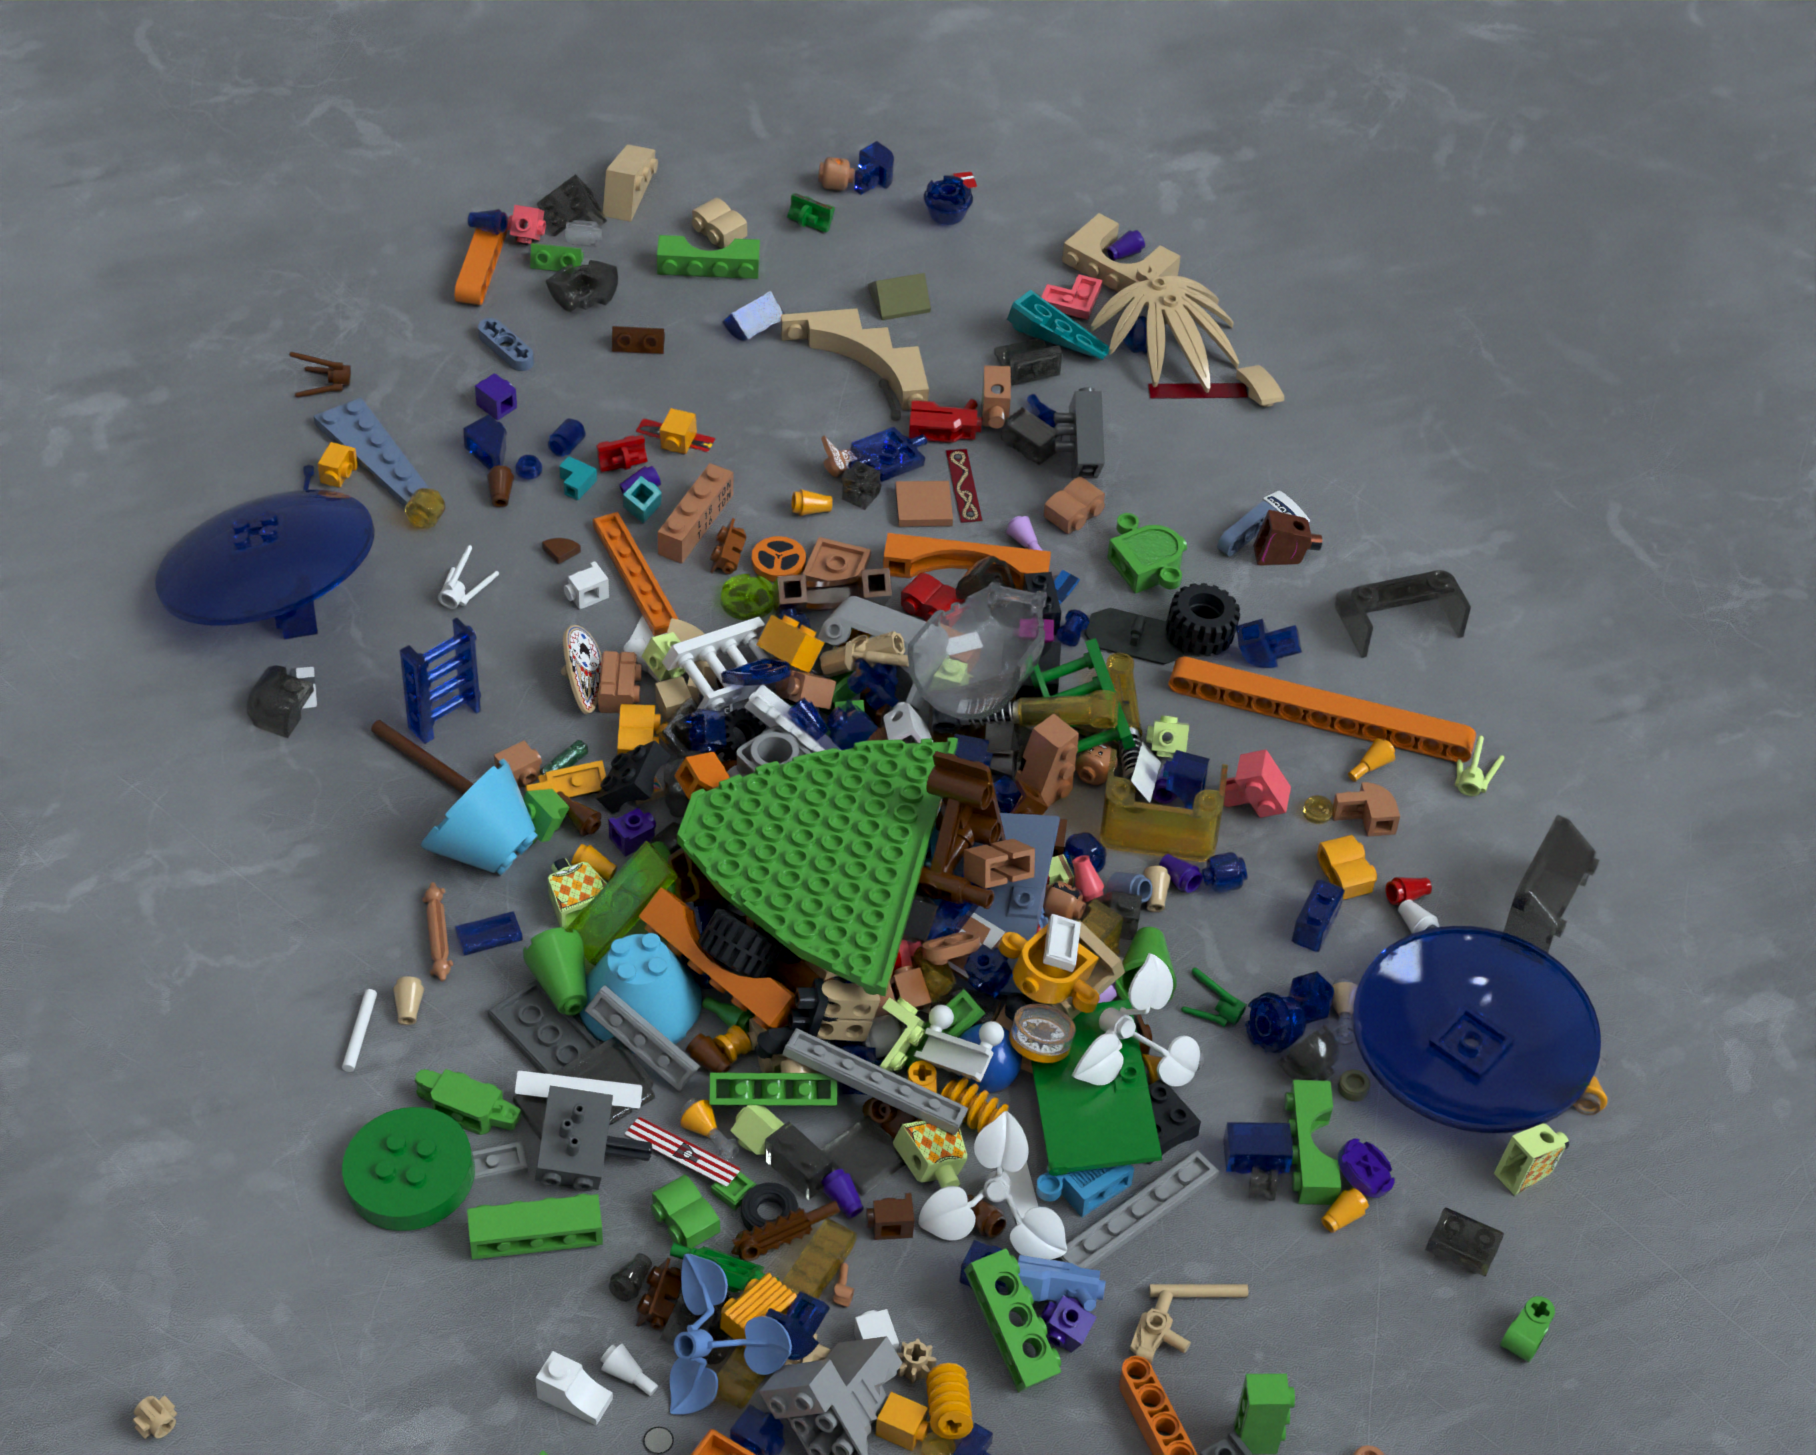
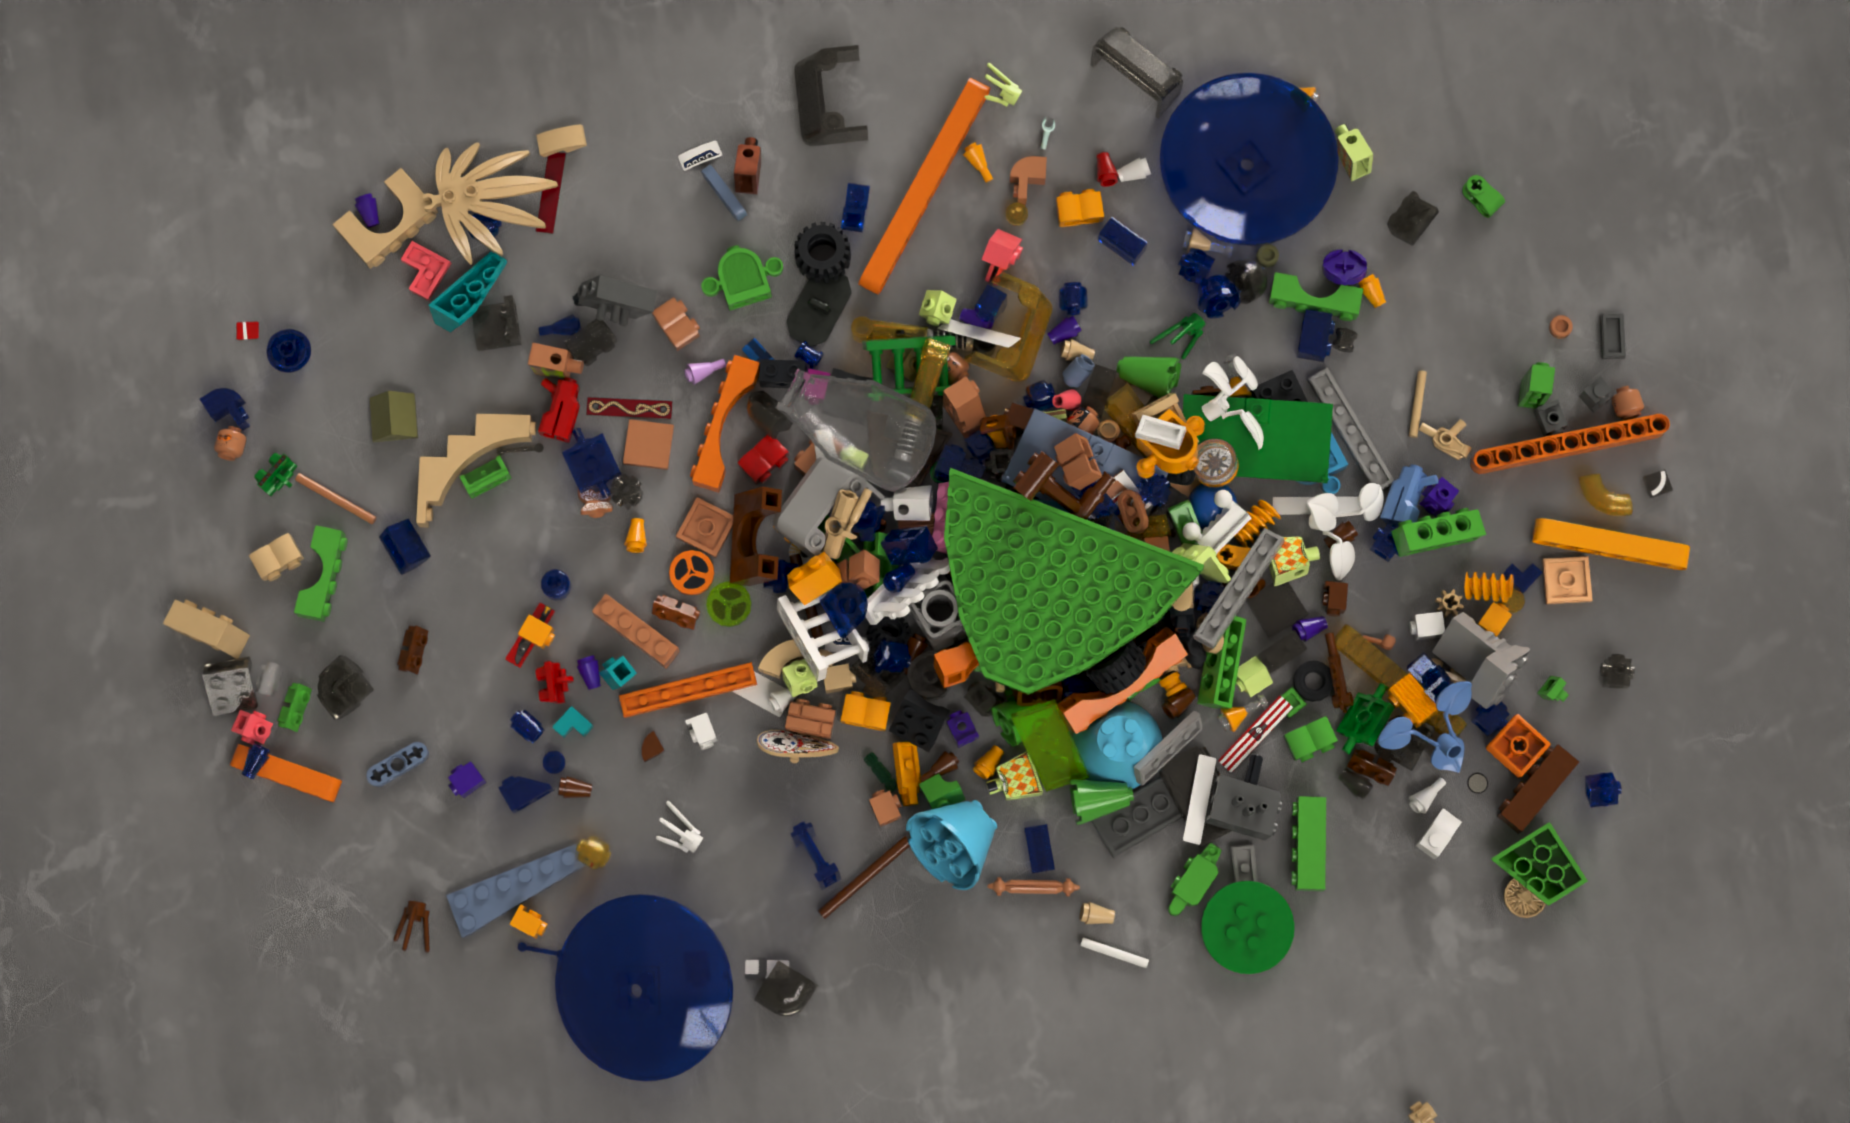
camera: 75 degrees left, 30 degrees up
(736, 437) = (552, 578): none -> clear blue head
(796, 263) = (335, 498): none -> nougat bar
(847, 373) = (485, 477): none -> bright green hinge
(1441, 822) = (1046, 133): none -> light aqua hand

